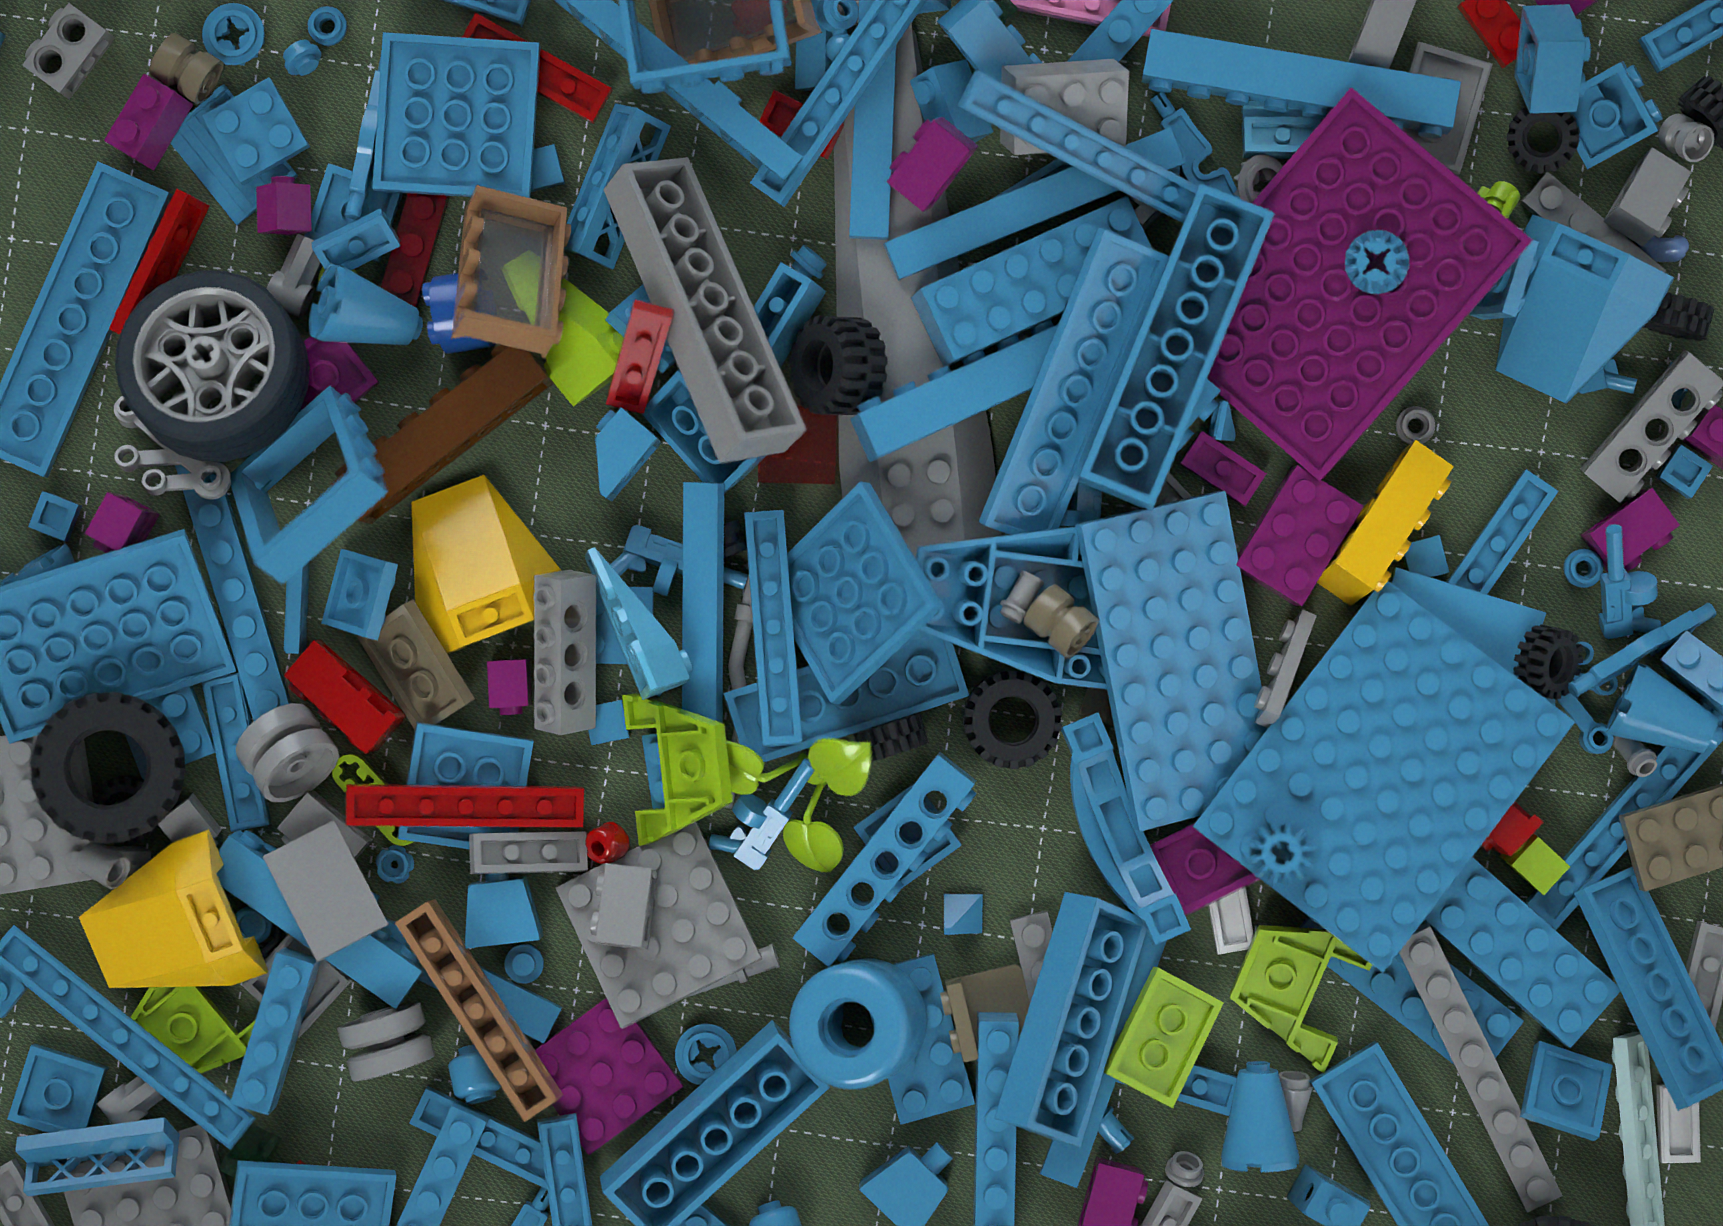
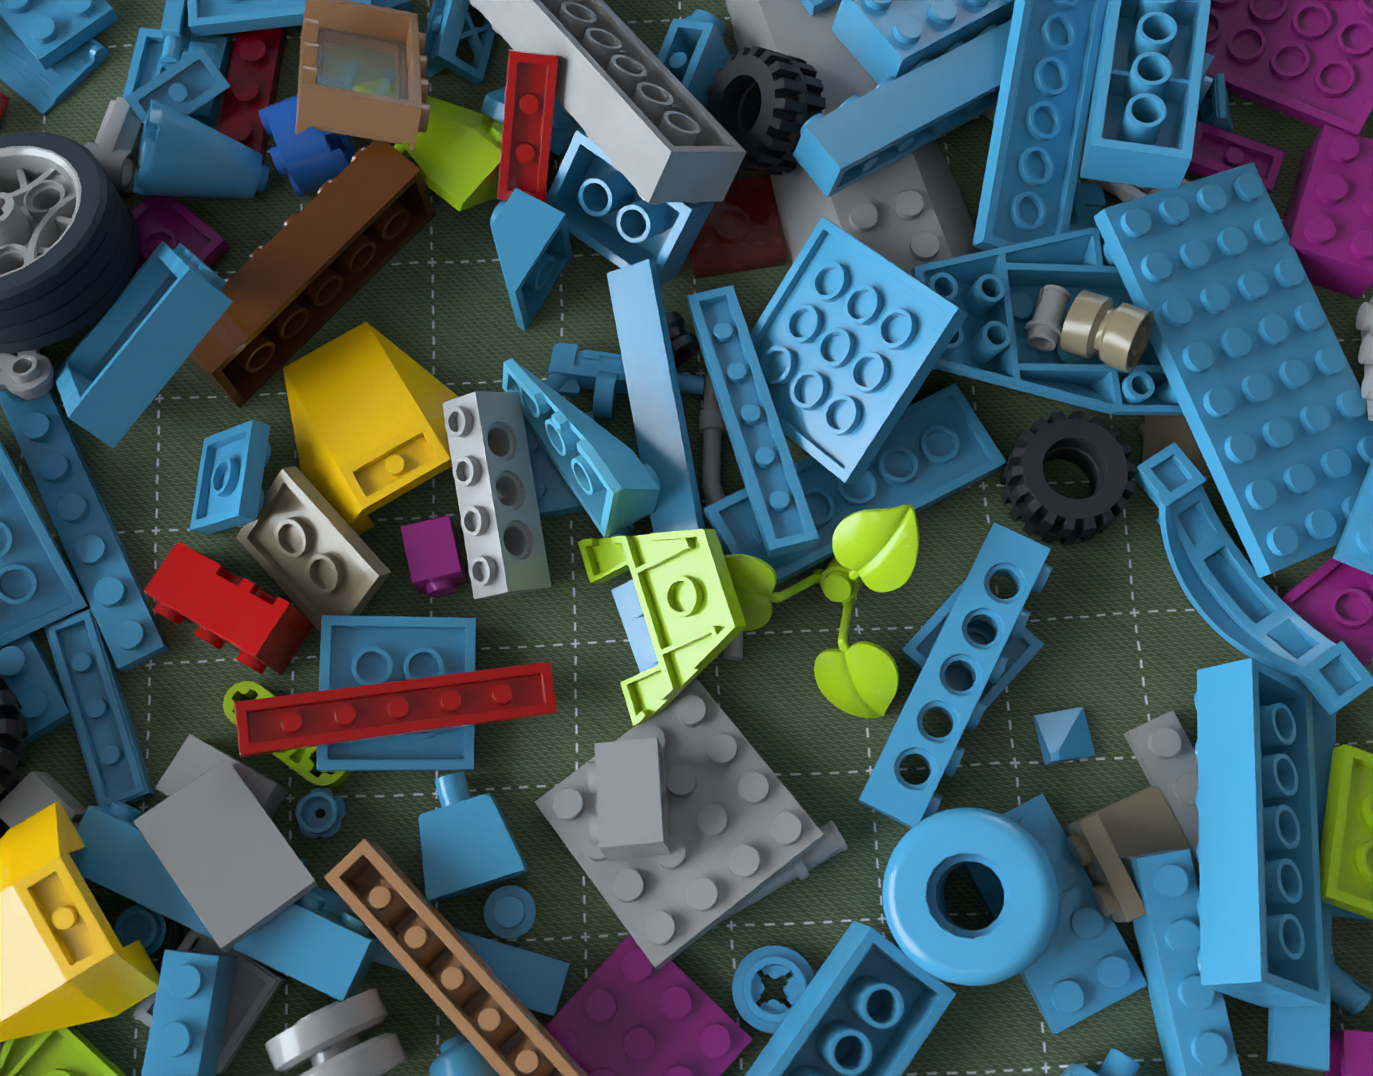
camera: 10 degrees left, 15 degrees down
(283, 207) = (90, 74): magenta brick -> none
(287, 752) = (155, 684): light grey wheel -> none
(296, 611) = (153, 494): dark azure tile -> none
(528, 852) = (490, 758): light grey plate -> none
(607, 843) = (589, 726): red piece -> none
(609, 723) = (568, 584): dark azure tile -> none
(764, 819) = (792, 661): dark azure piece -> none
(894, 736) = (940, 518): black tyre -> none

